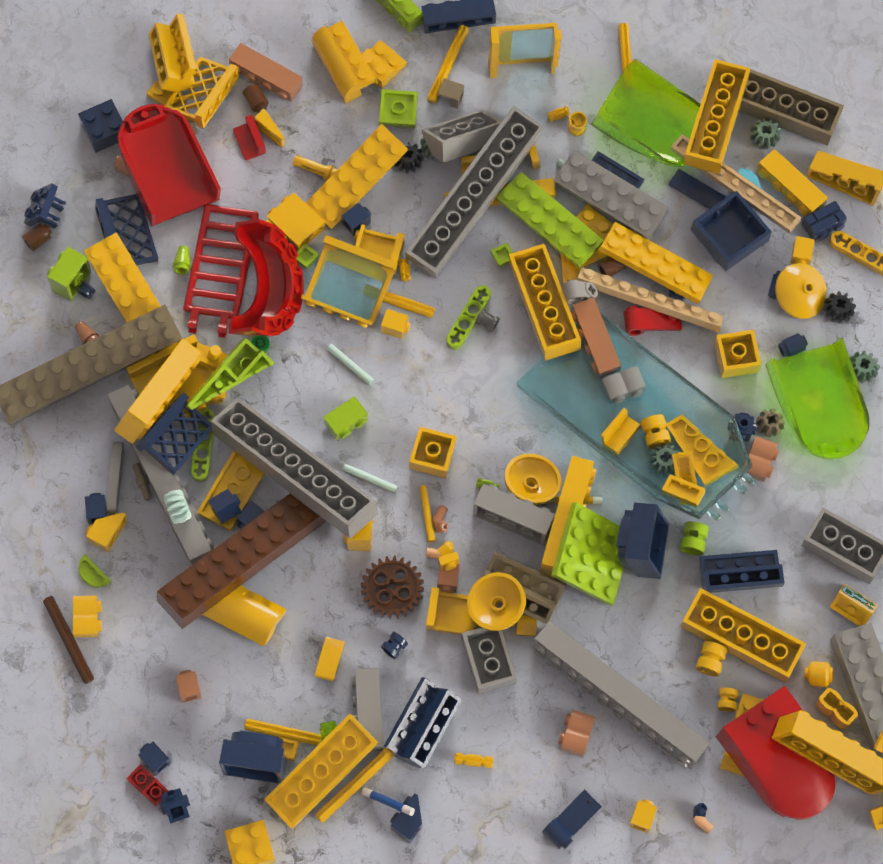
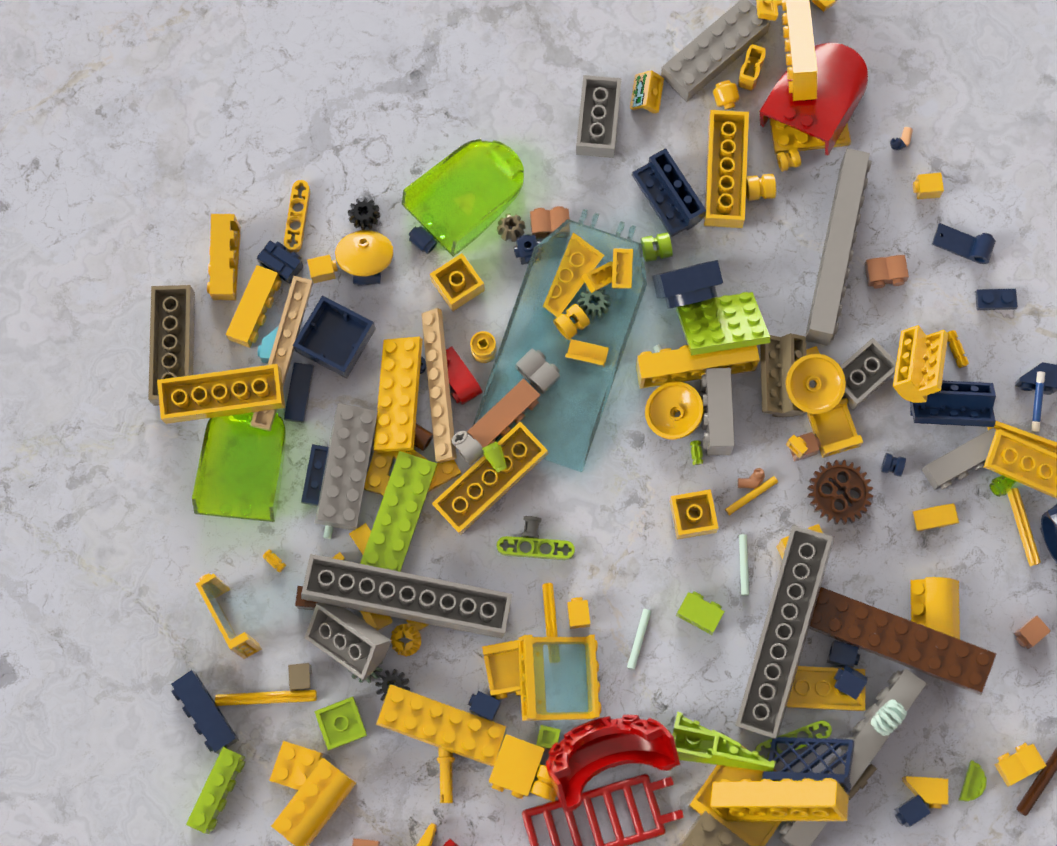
camera: 110 degrees left, 5 degrees up
(115, 478) = (873, 809): light grey beam -> none
(210, 356) = (702, 779): yellow tile -> none
(290, 747) = (1034, 515): yellow tile -> none
(404, 270) = (515, 632): yellow piece -> none
(443, 188) = (410, 632): none -> yellow gear
(446, 548) = (783, 464): arm -> none
(472, 704) = (919, 364): none -> yellow brick
(501, 254) = (455, 544): lime plate -> none
(503, 822) = (996, 299): none -> dark blue plate
(559, 304) = (495, 456): none -> lime cone
(577, 119) = (275, 533): yellow wheel -> none
(624, 45) = (170, 527): yellow axle -> none
(667, 348) = (483, 347): none -> yellow wheel
(765, 133) = (210, 359): sand green gear -> none
(867, 361) = (413, 164): sand green gear -> none

